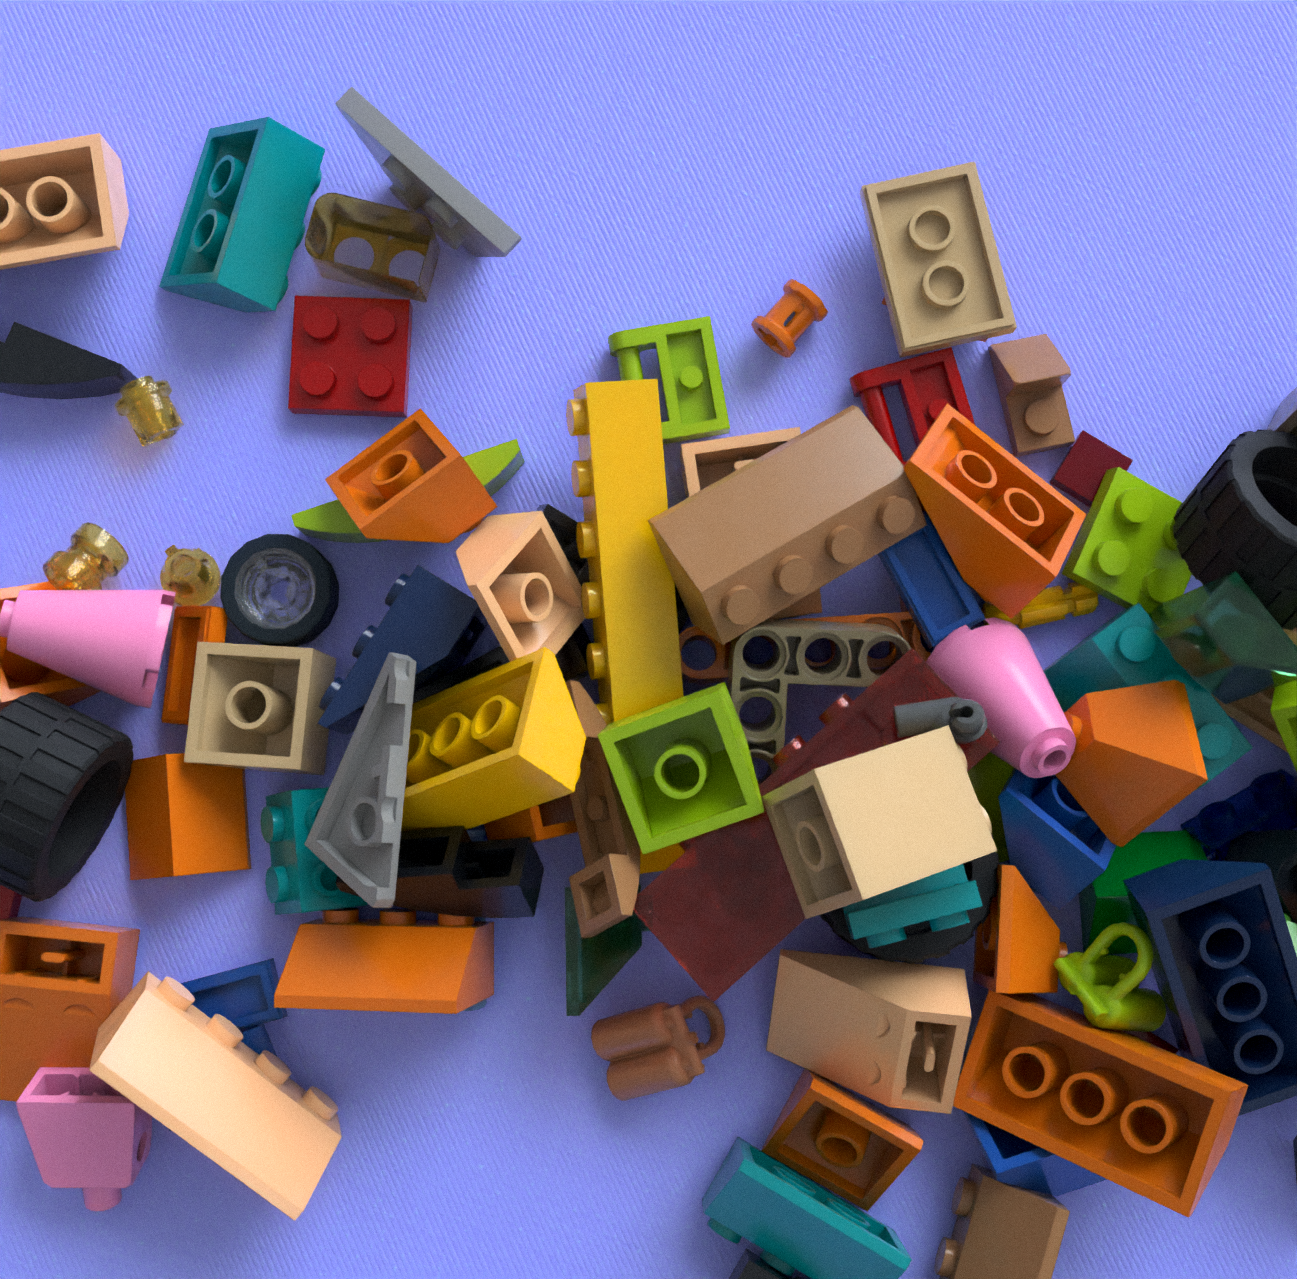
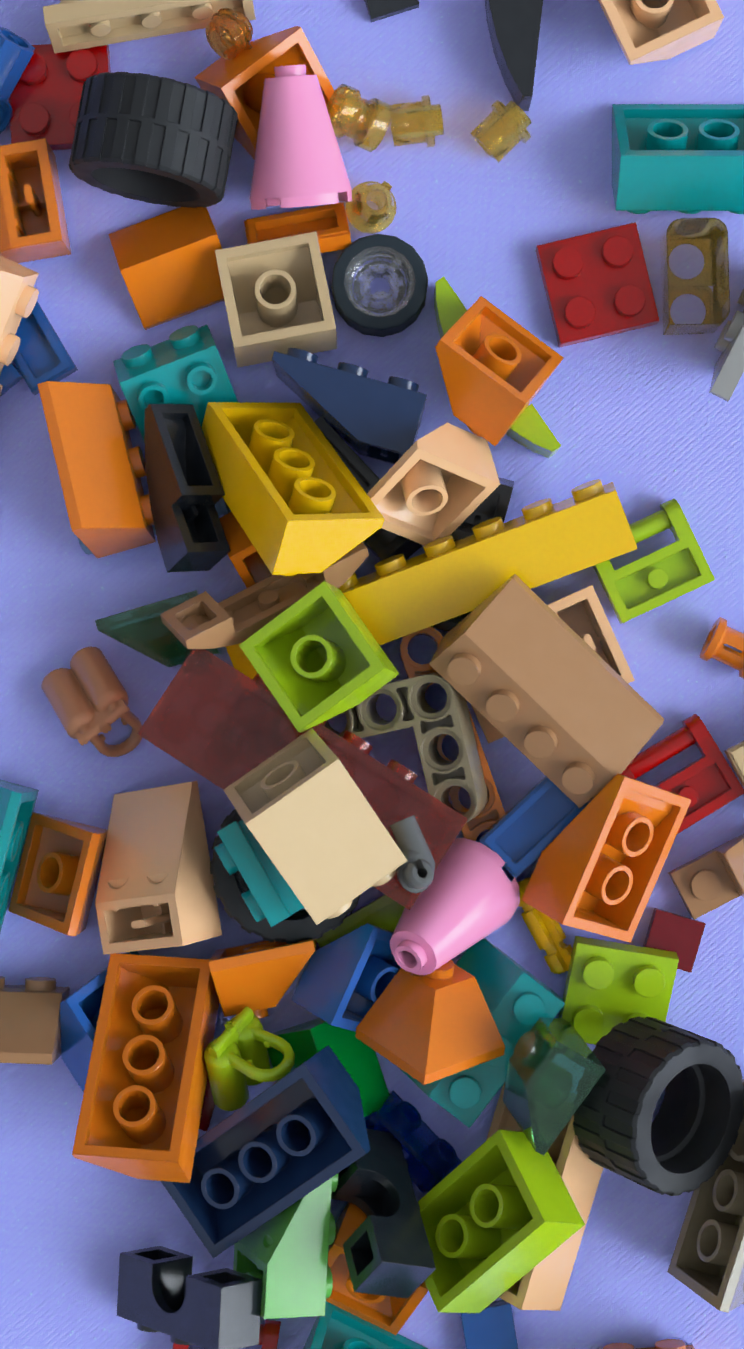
camera: 75 degrees right, 5 degrees up
(112, 500) = (416, 122): none -> clear yellow hose
(363, 809) = (217, 408): light grey wing -> none

